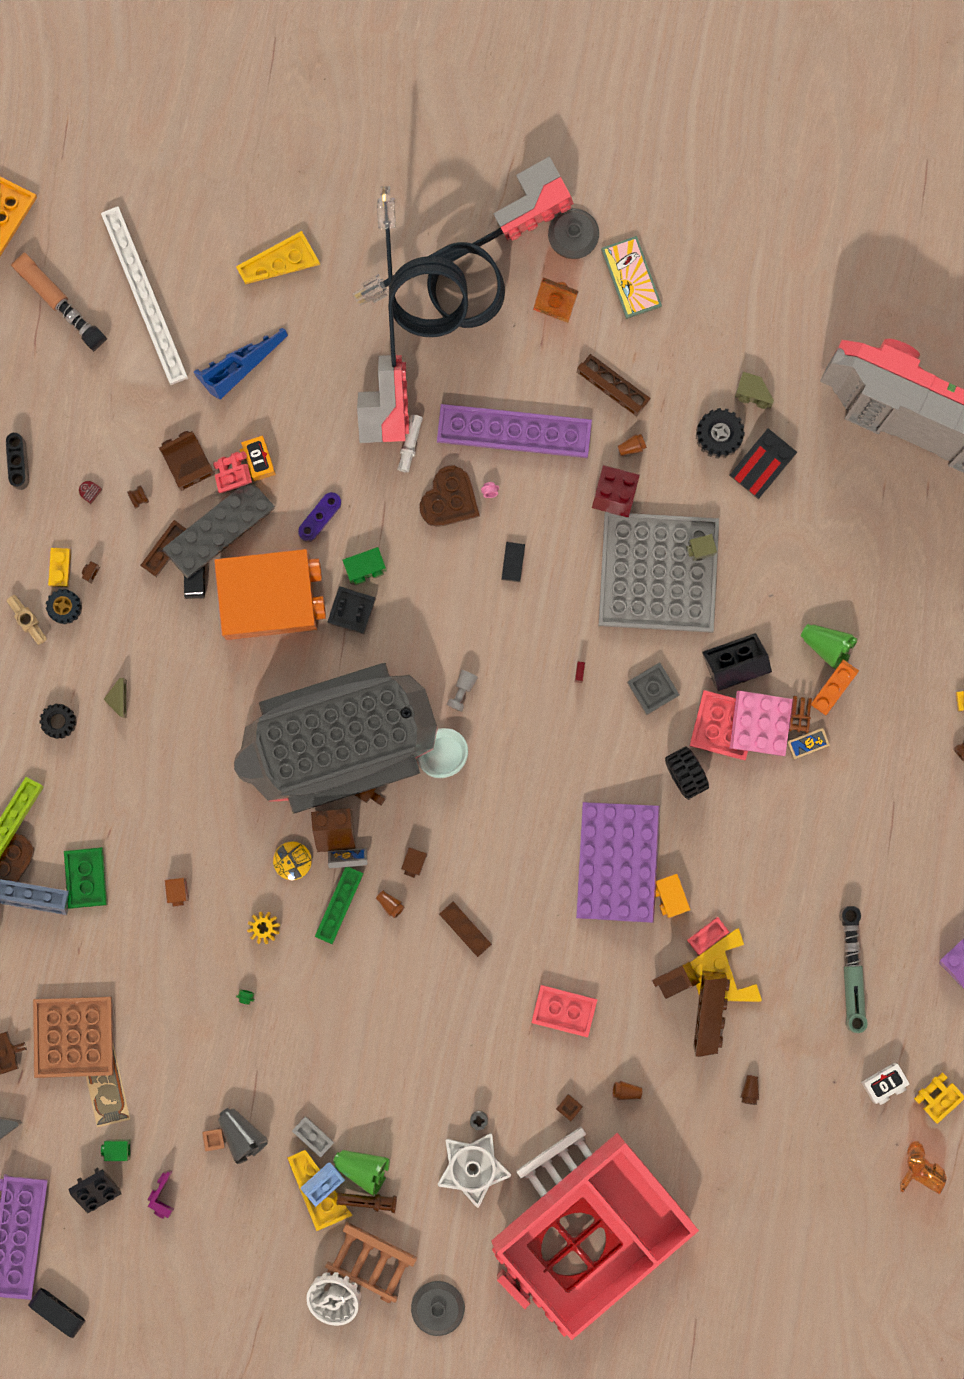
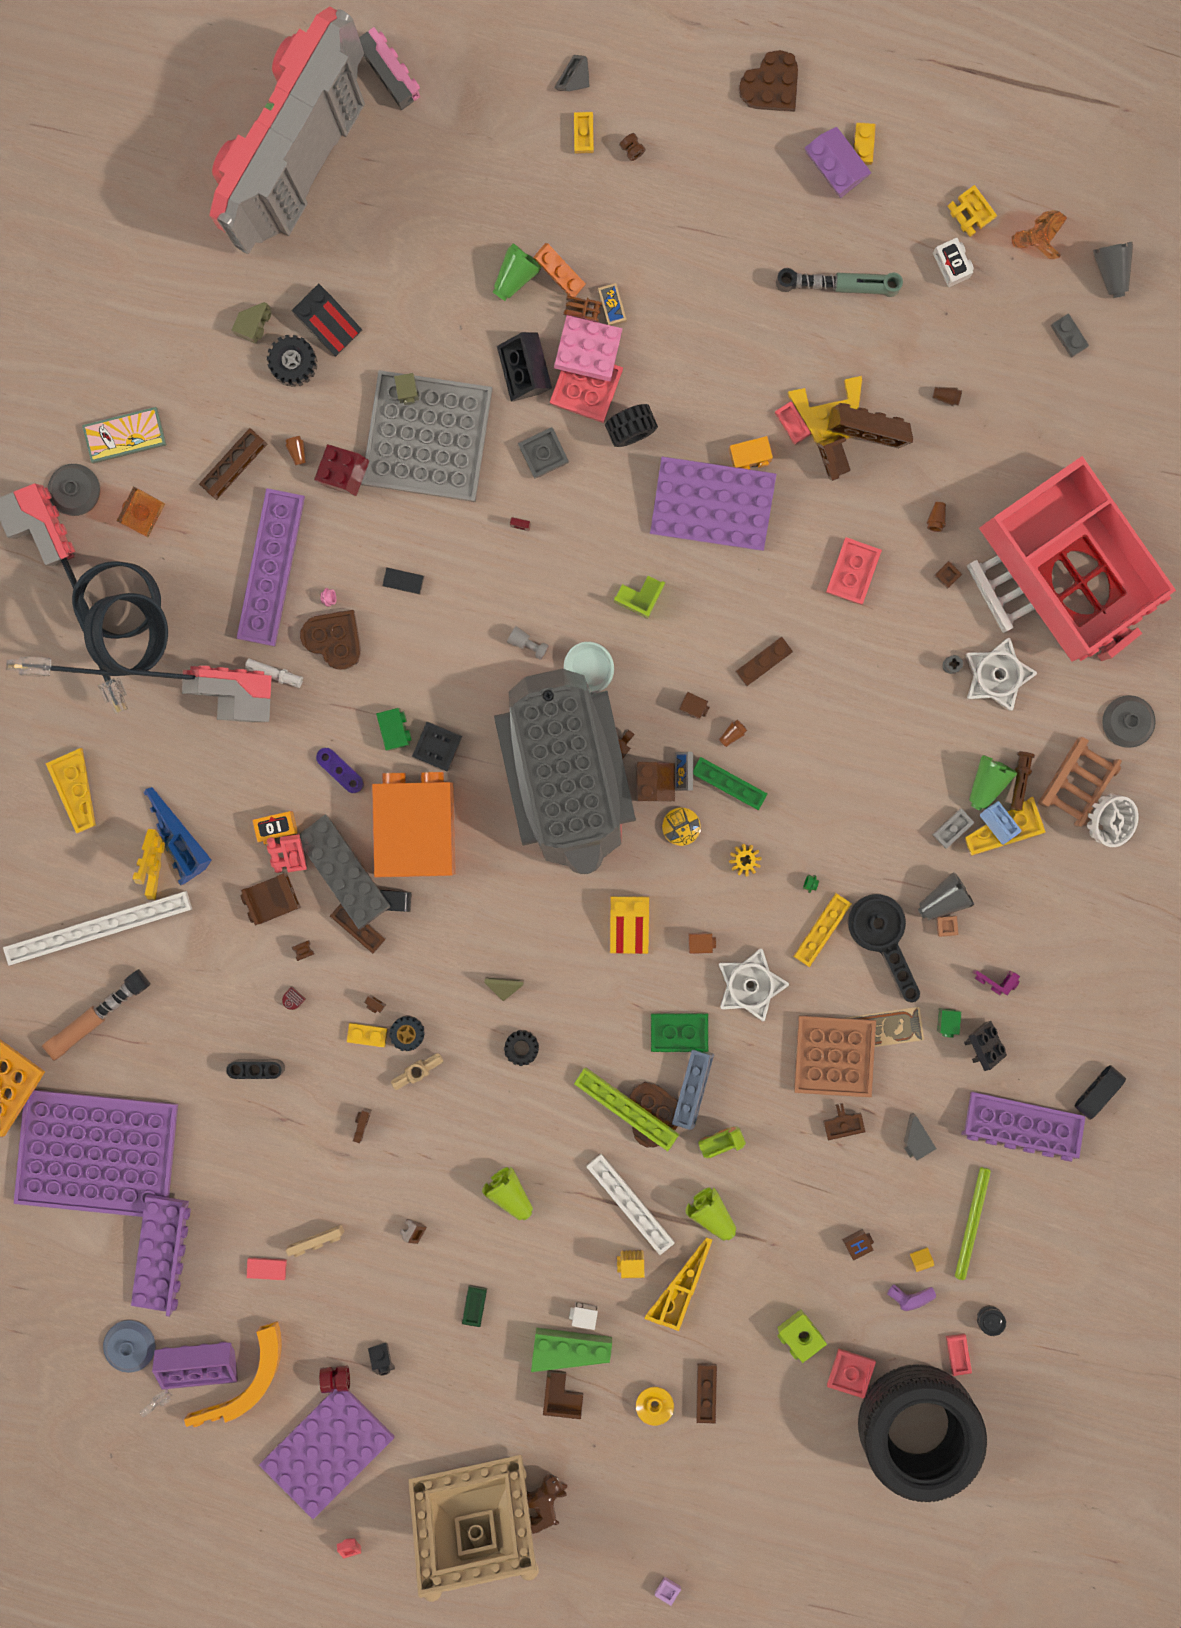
camera: 90 degrees left, 5 degrees up
(124, 948) = (752, 999): none -> white plate
(190, 817) = (629, 924): none -> yellow slope
(195, 1076) = (885, 938): none -> black beam
(200, 1013) = (822, 930): none -> yellow tile
(210, 340) = (150, 863): none -> yellow wing
(513, 799) = (642, 602): none -> lime panel
(824, 1210) = (1069, 335): none -> dark grey plate
(897, 1250) = (1115, 267): none -> dark grey cone

